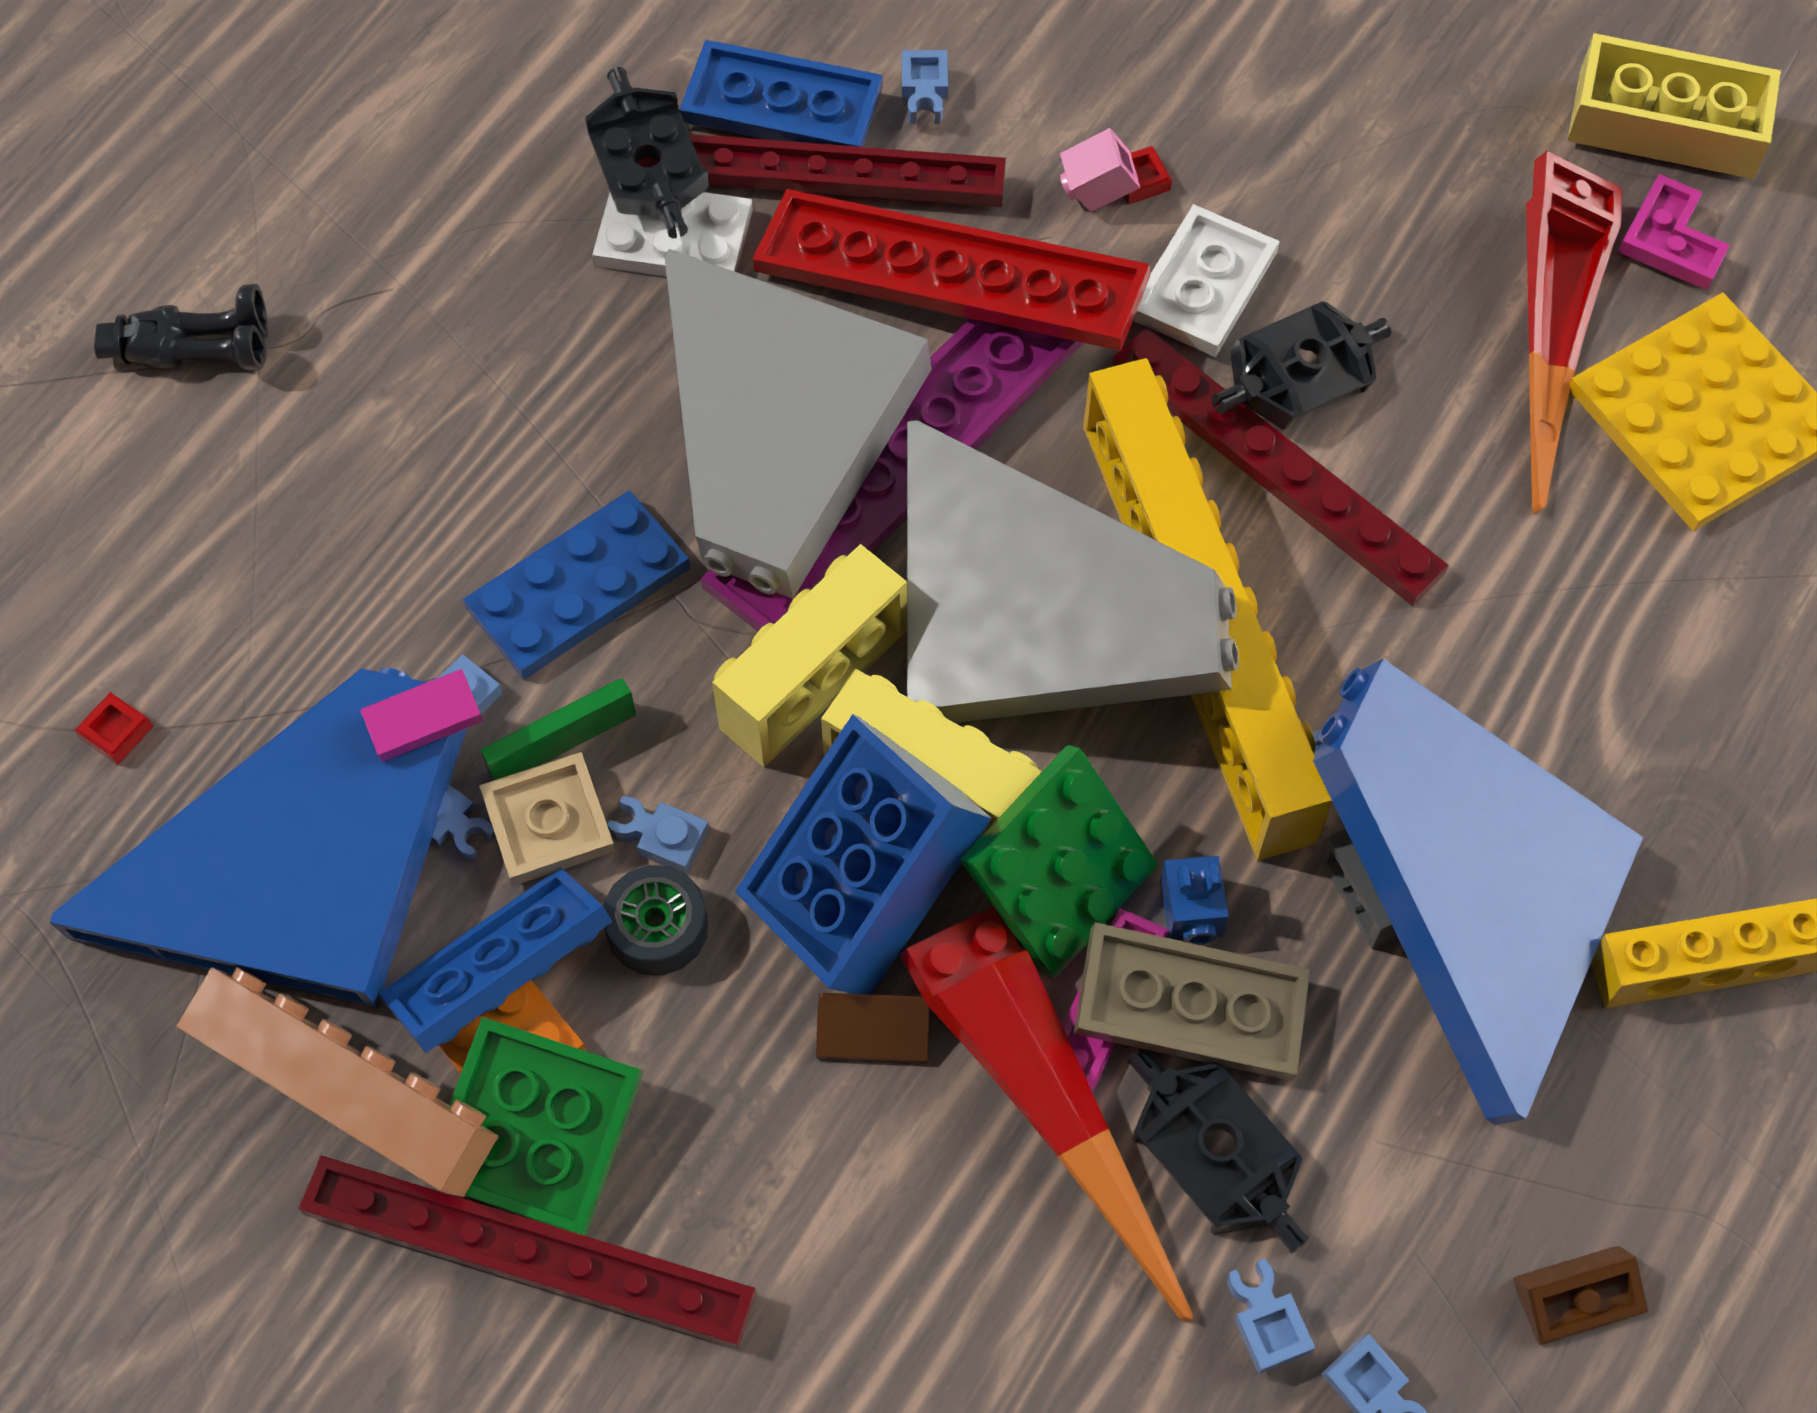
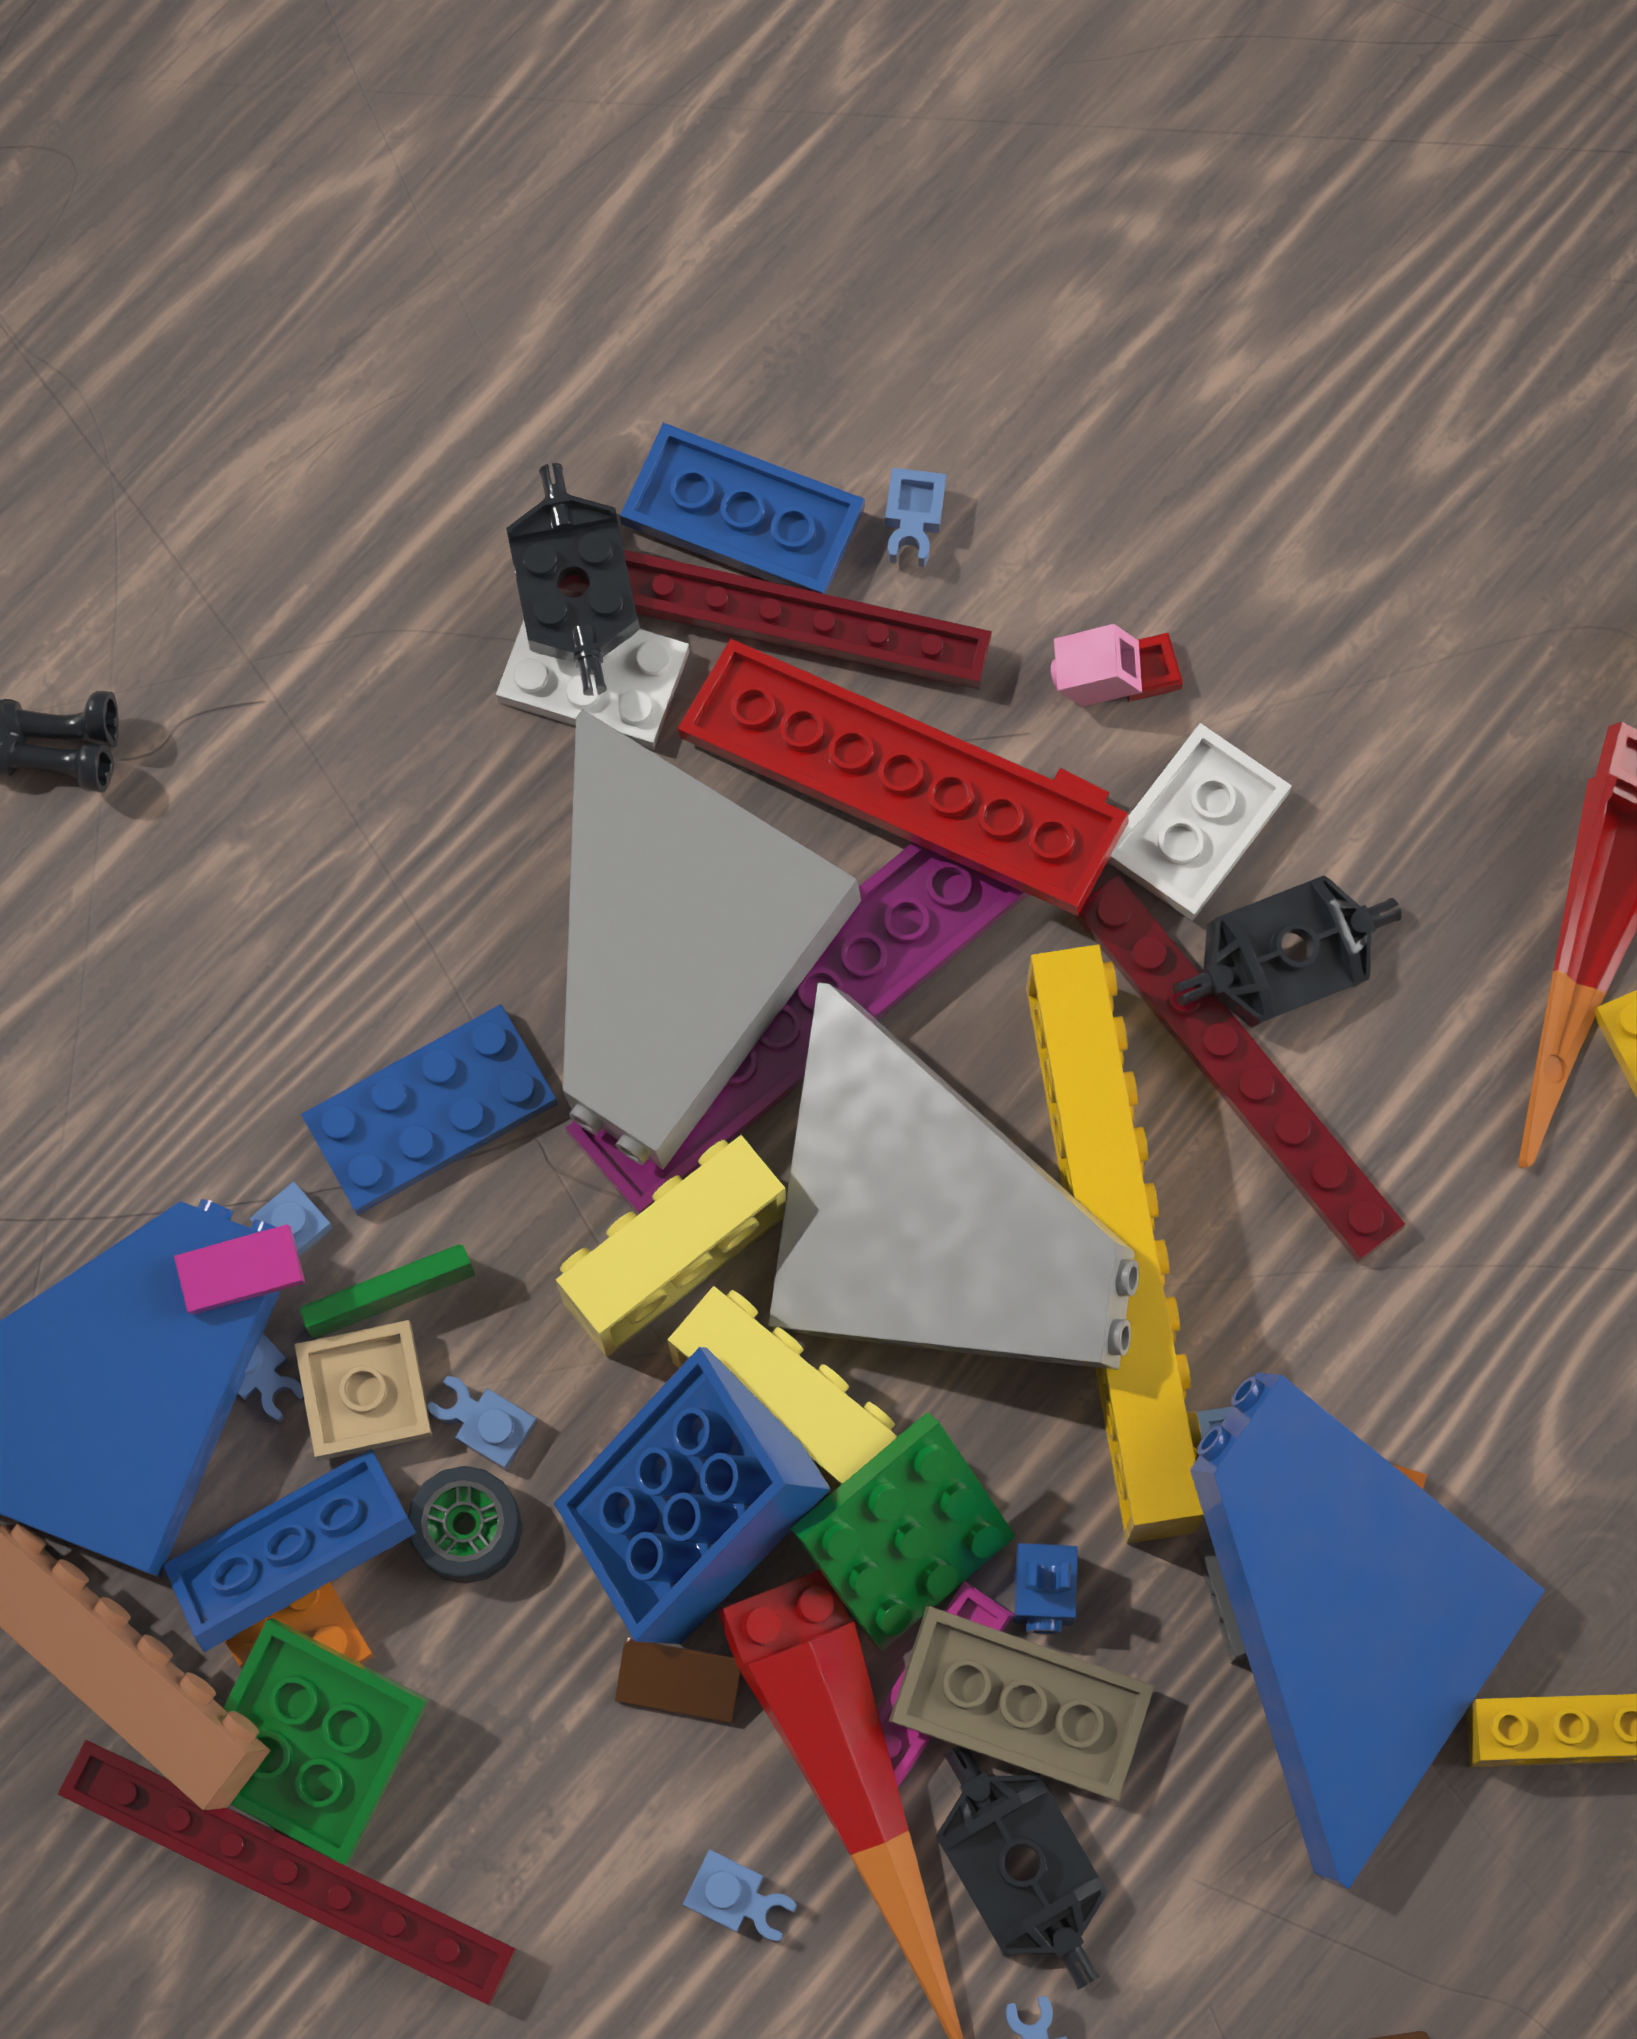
camera: 10 degrees right, 10 degrees up
(949, 1213) = (729, 1894): none -> medium blue plate

